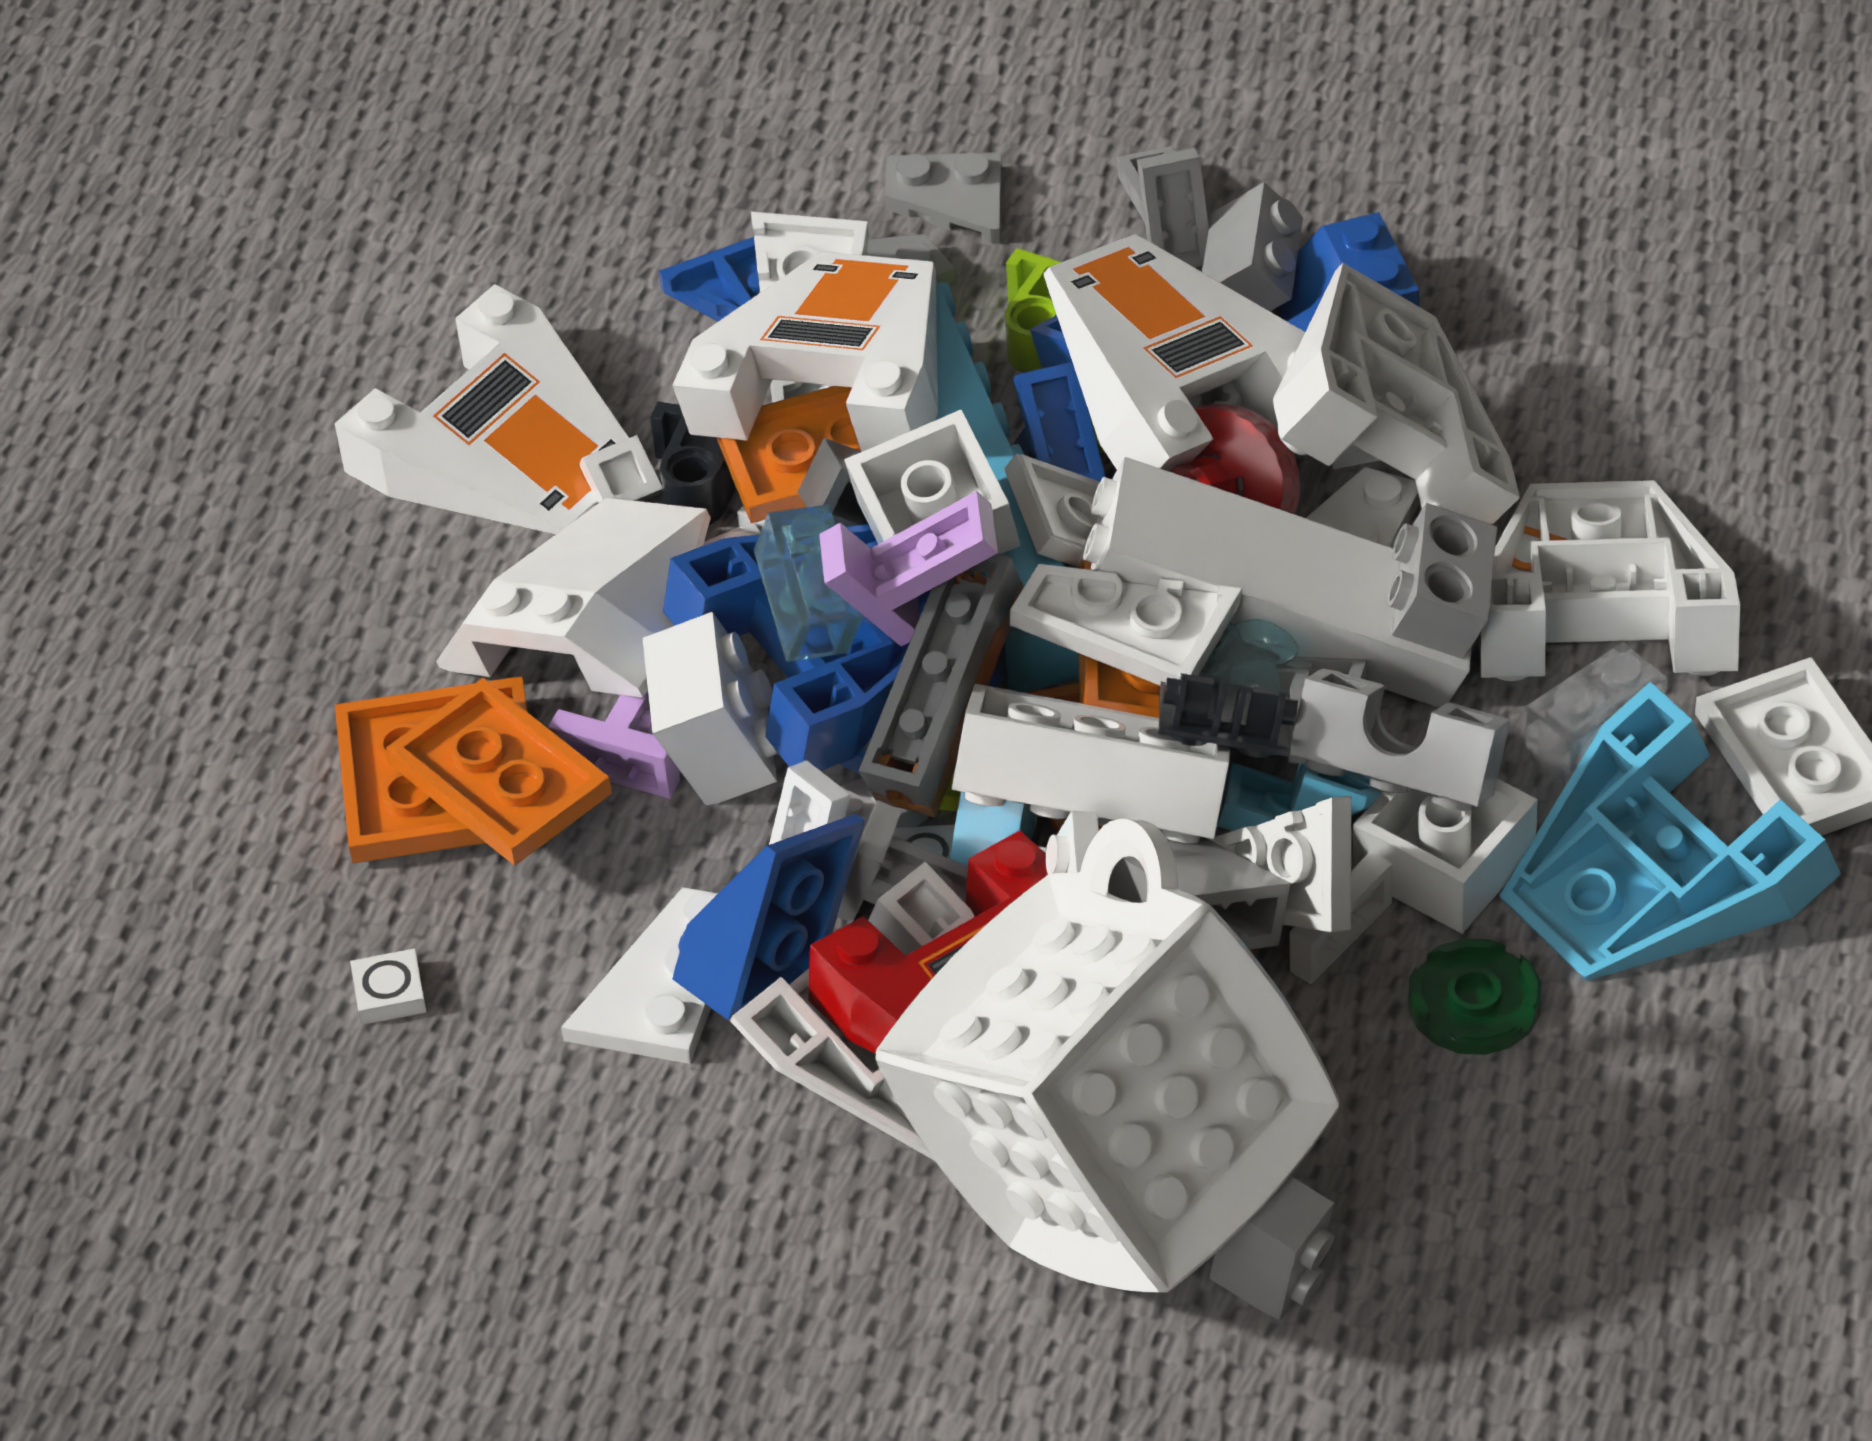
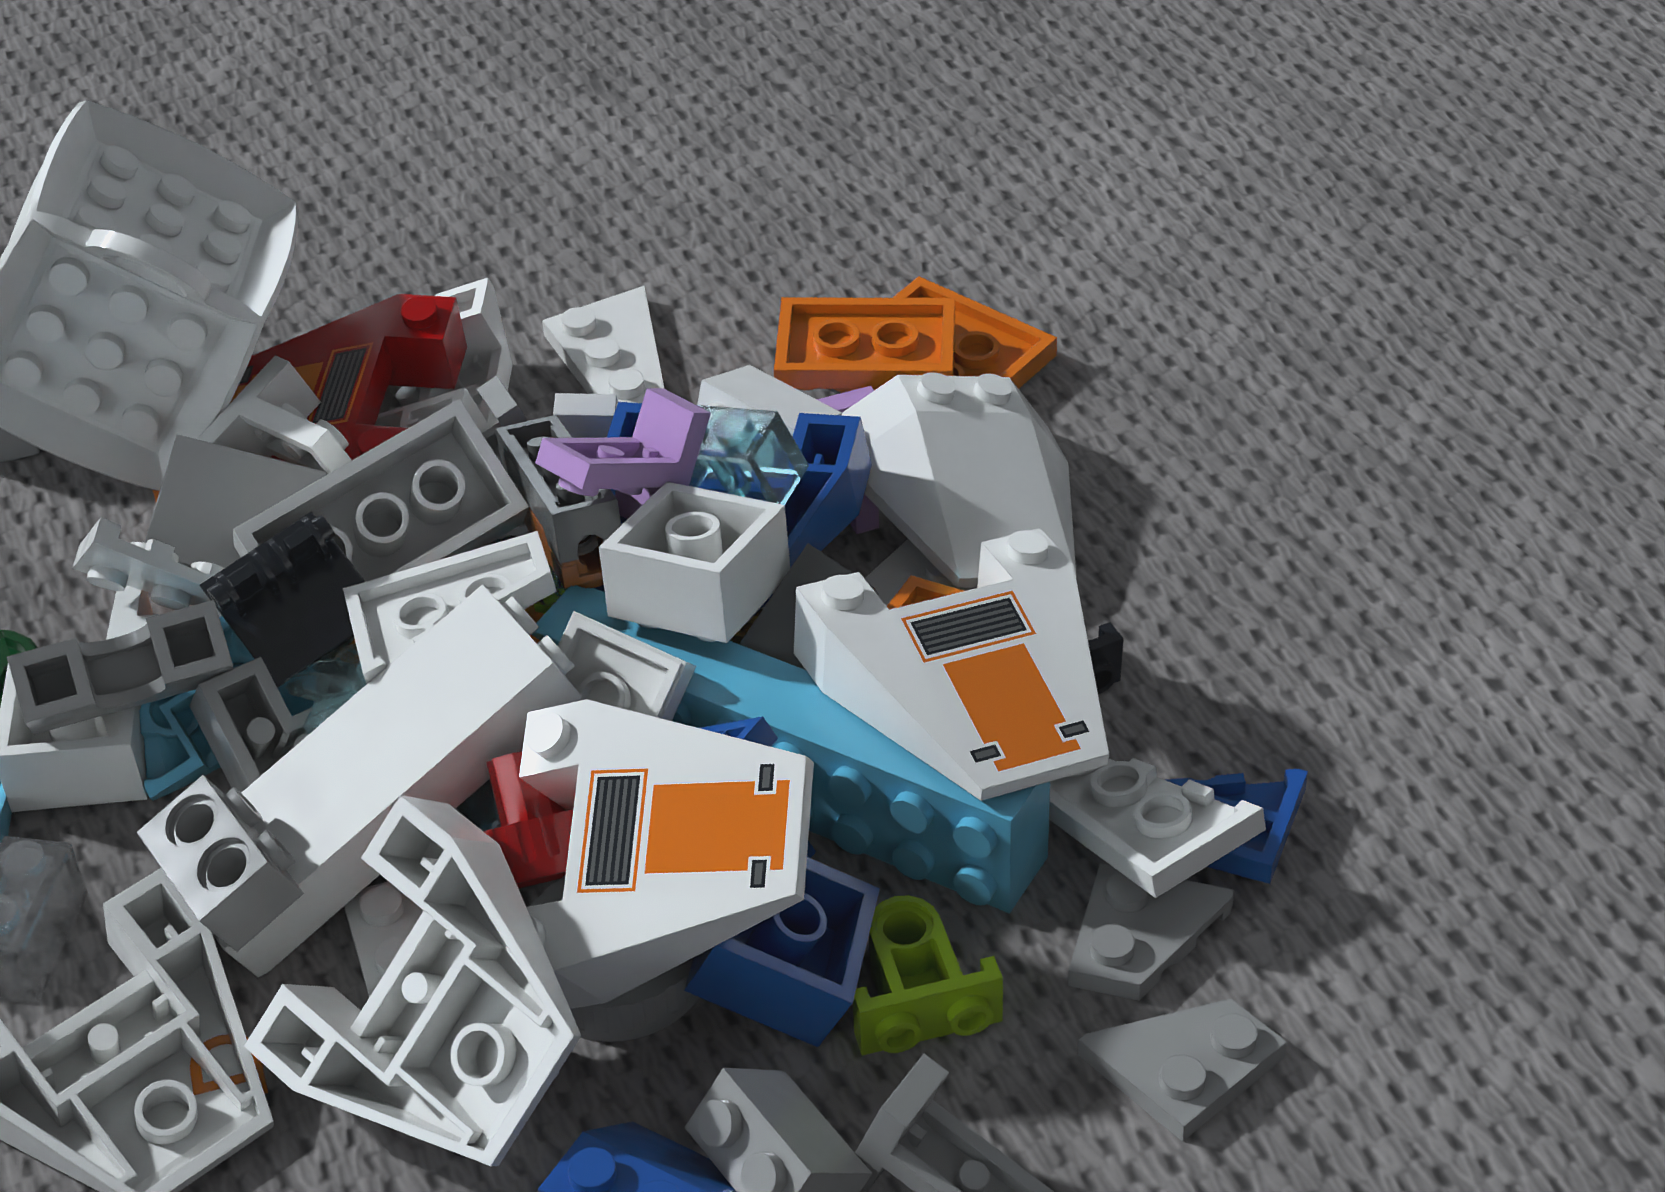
camera: 135 degrees right, 5 degrees down
(388, 986) = (794, 252): white tile -> none
(500, 436) = (1228, 588): white wedge -> none
(621, 472) = (1105, 601): white tile -> none
(768, 917) = (535, 331): blue slope -> none

